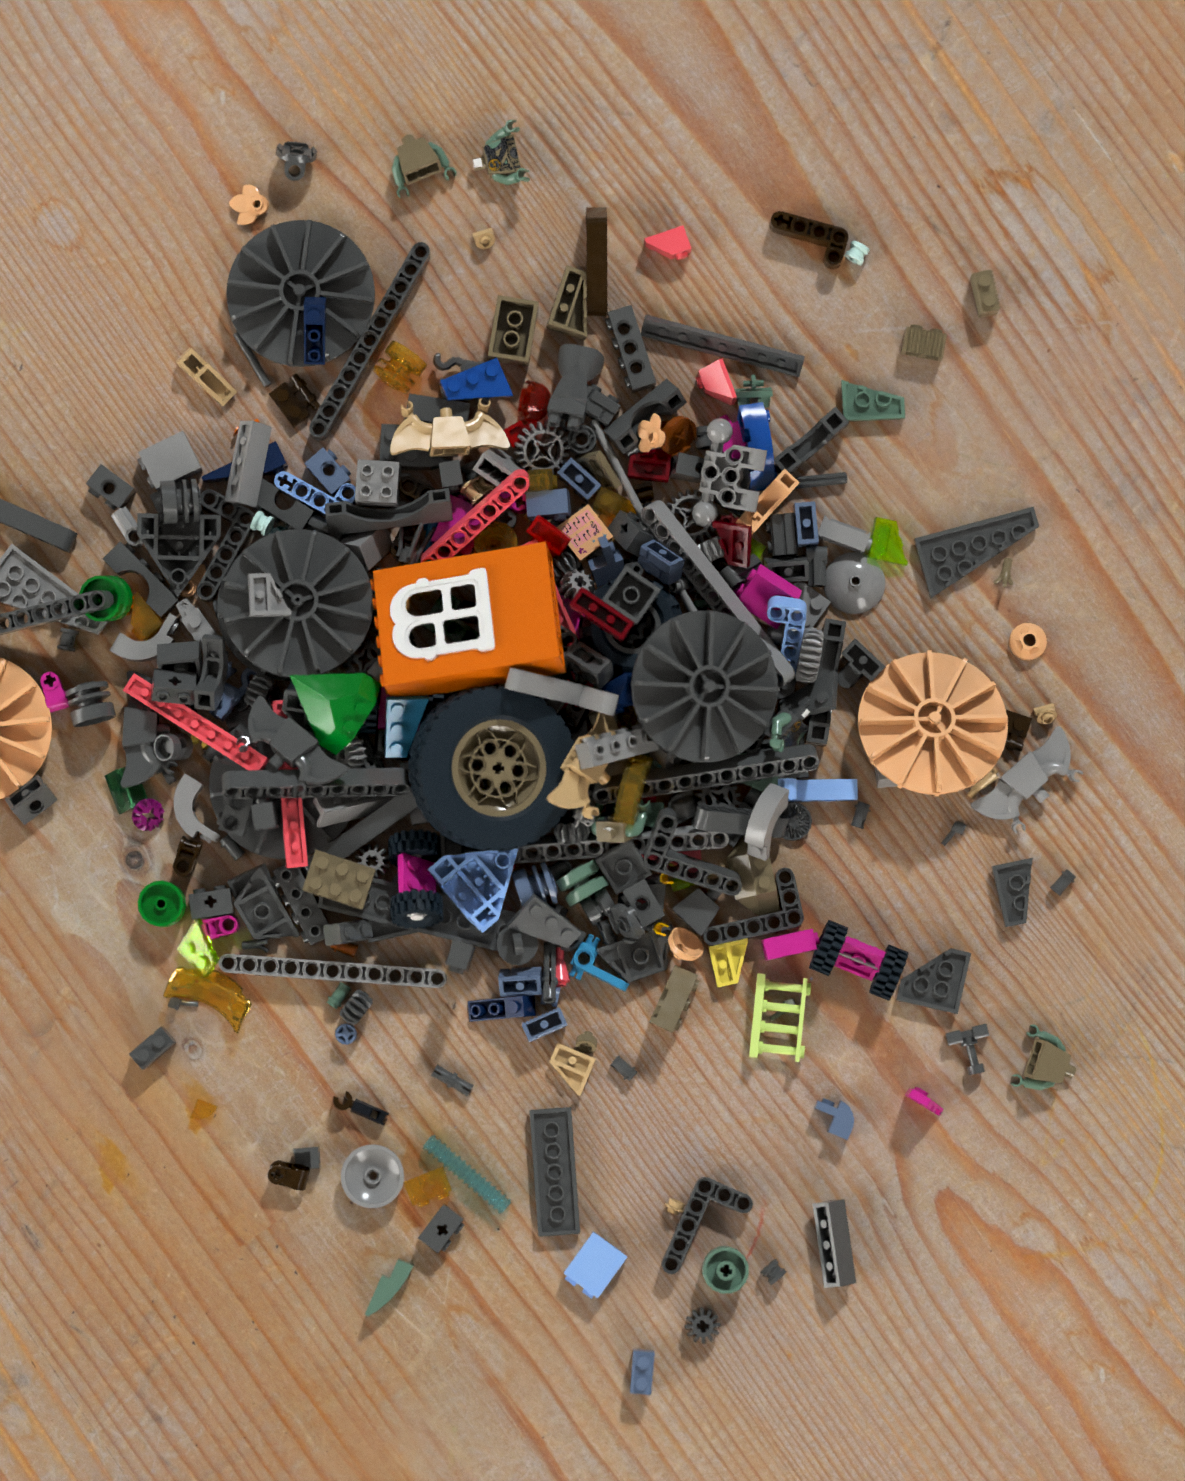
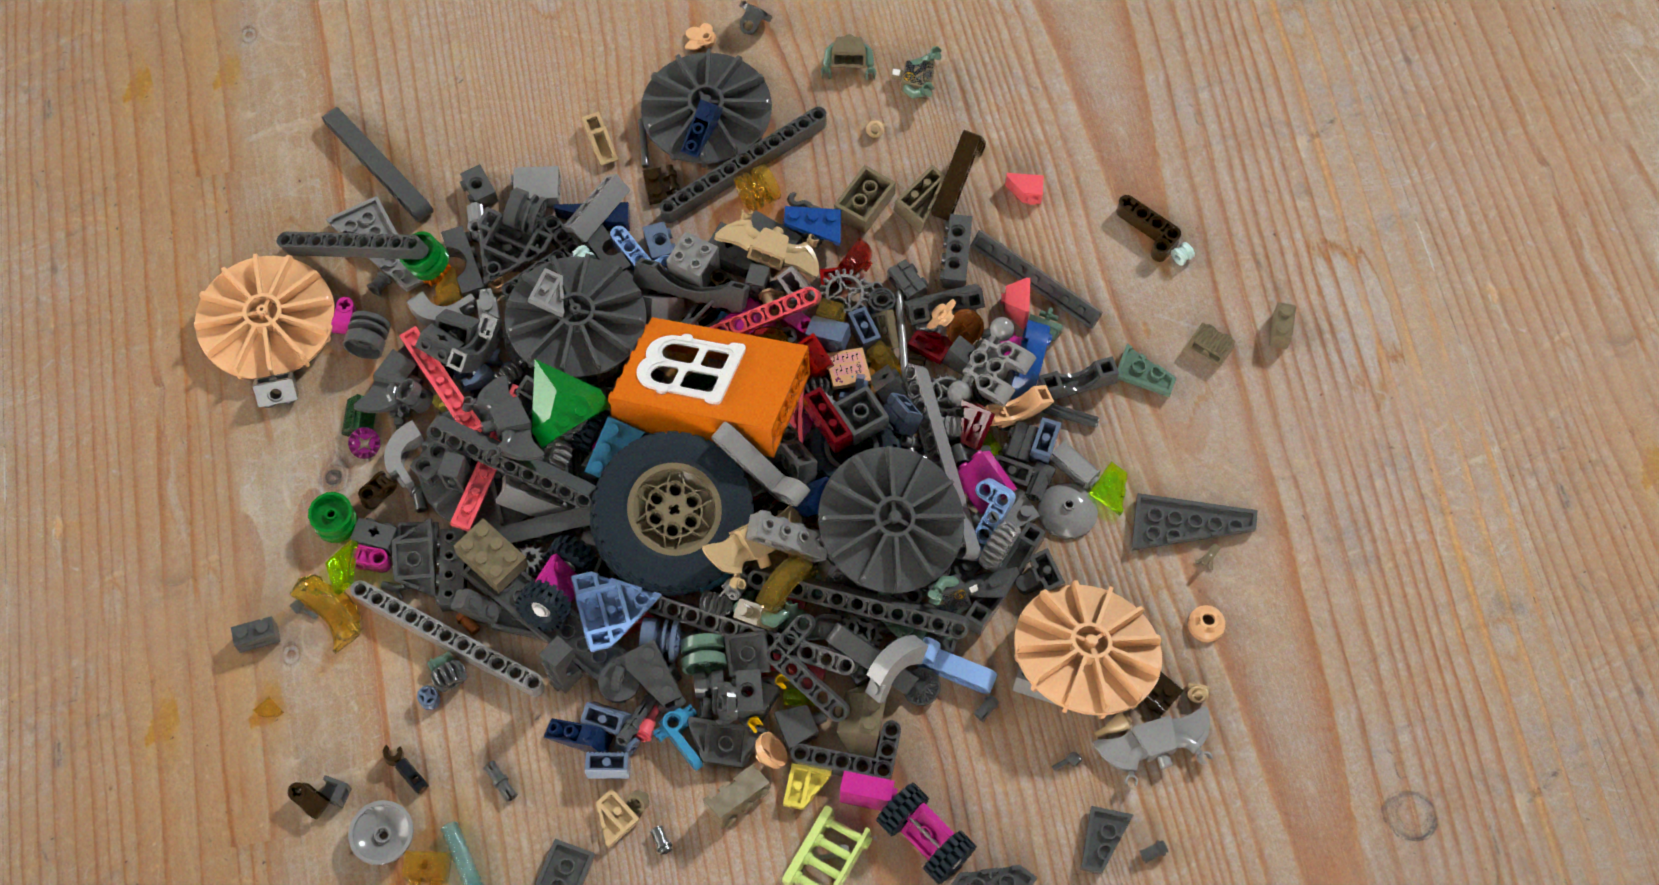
camera: 30 degrees right, 20 degrees down
(569, 400) = (889, 260): dark grey hips -> none

